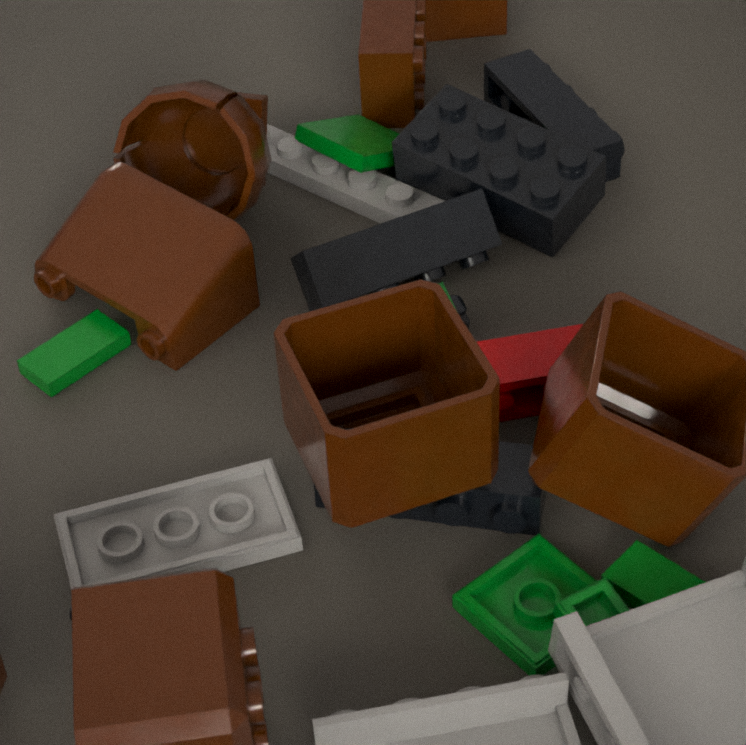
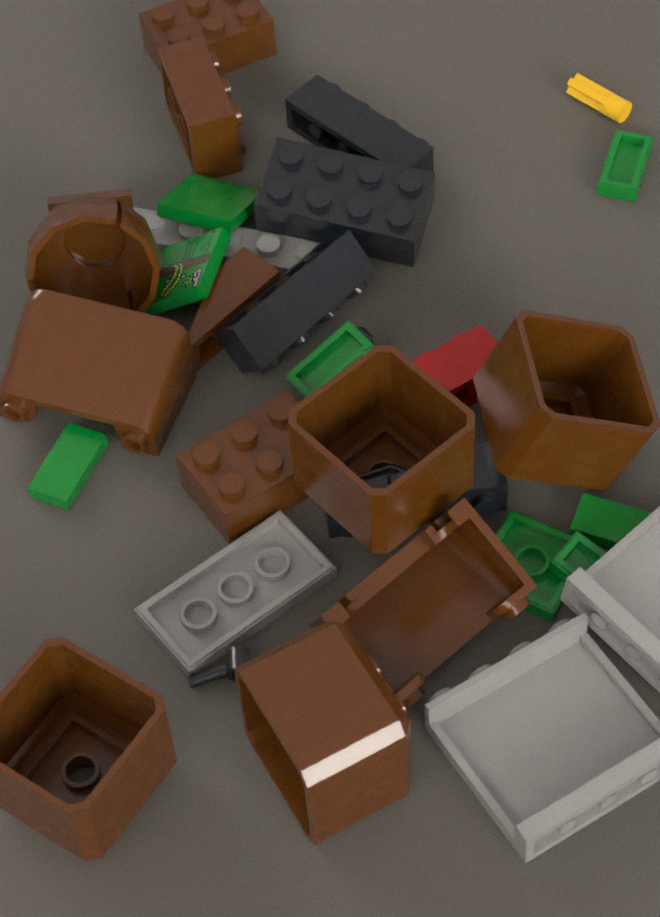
camera: 20 degrees left, 10 degrees up
(235, 408) = (243, 469): none -> reddish brown brick
(296, 196) = (189, 270): none -> green tile
(323, 223) = (235, 285): none -> reddish brown slope
(373, 606) = (432, 598): none -> reddish brown windscreen

